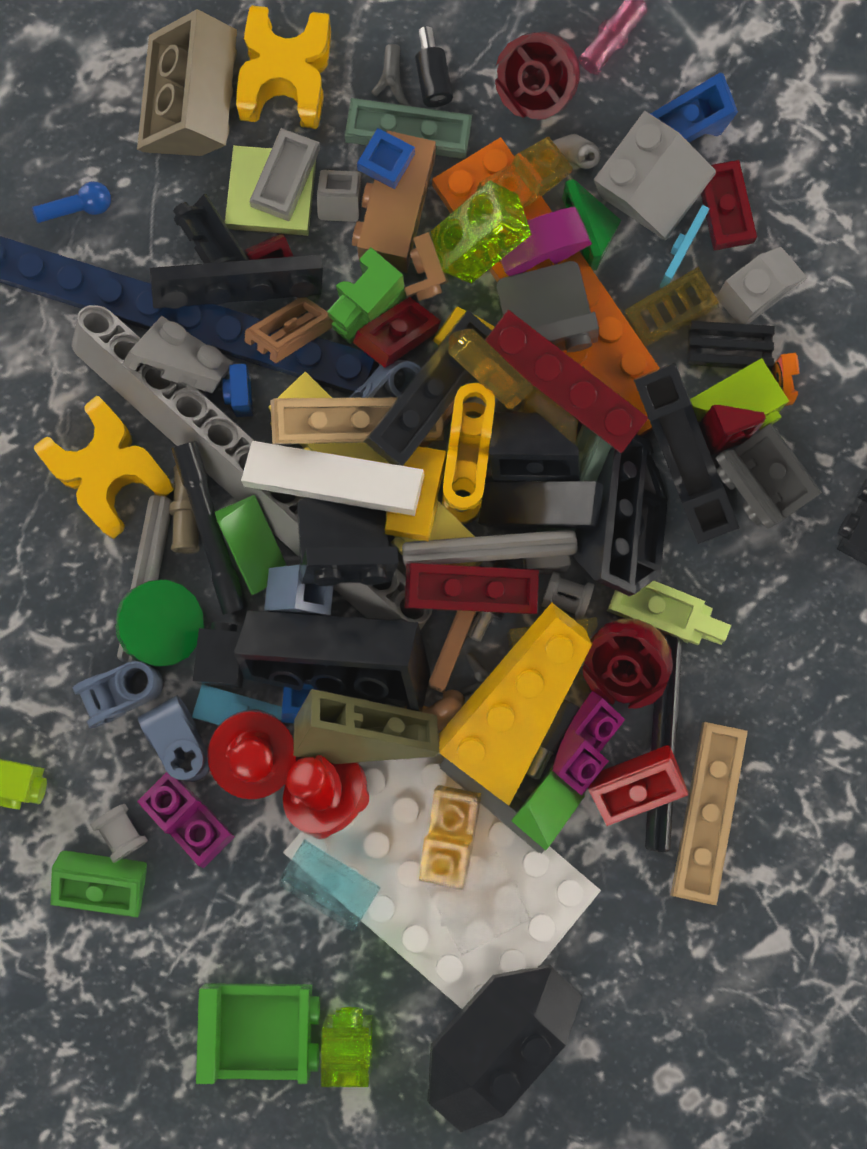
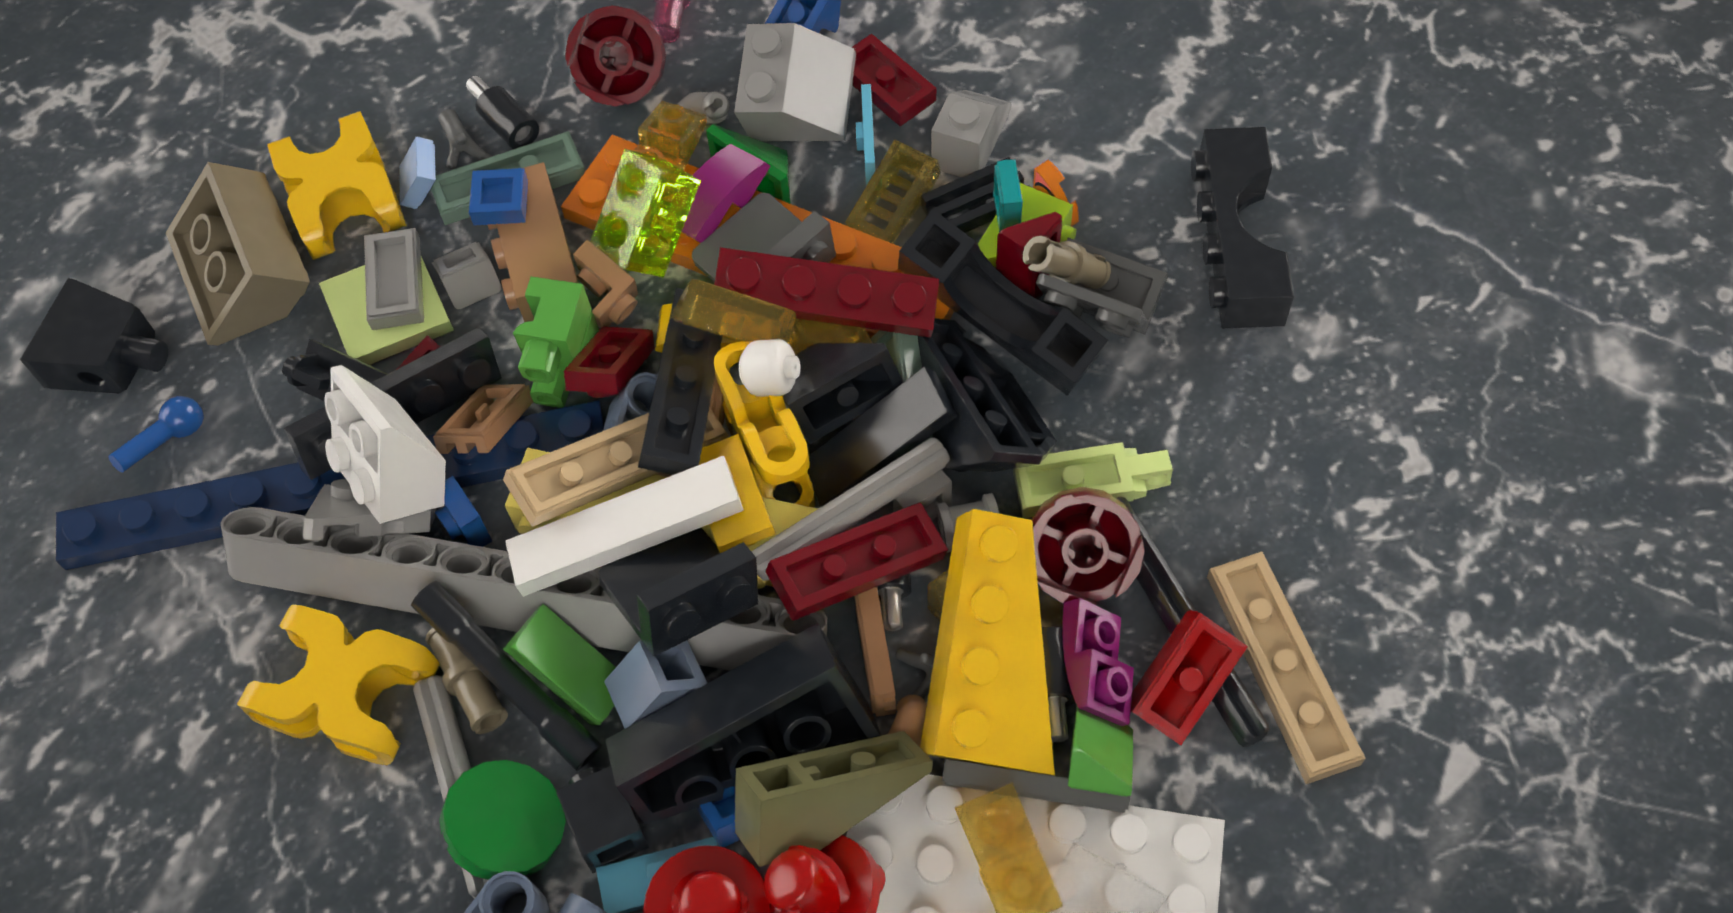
camera: 25 degrees left, 20 degrees down
(59, 106) = (92, 342): none -> black torso
(204, 325) = (381, 450): none -> white slope
(345, 90) = (417, 172): none -> light blue tile
(491, 419) = (768, 367): none -> white piece
(742, 373) = (1007, 194): none -> teal tile
(748, 452) = (1066, 262): none -> dark tan pin

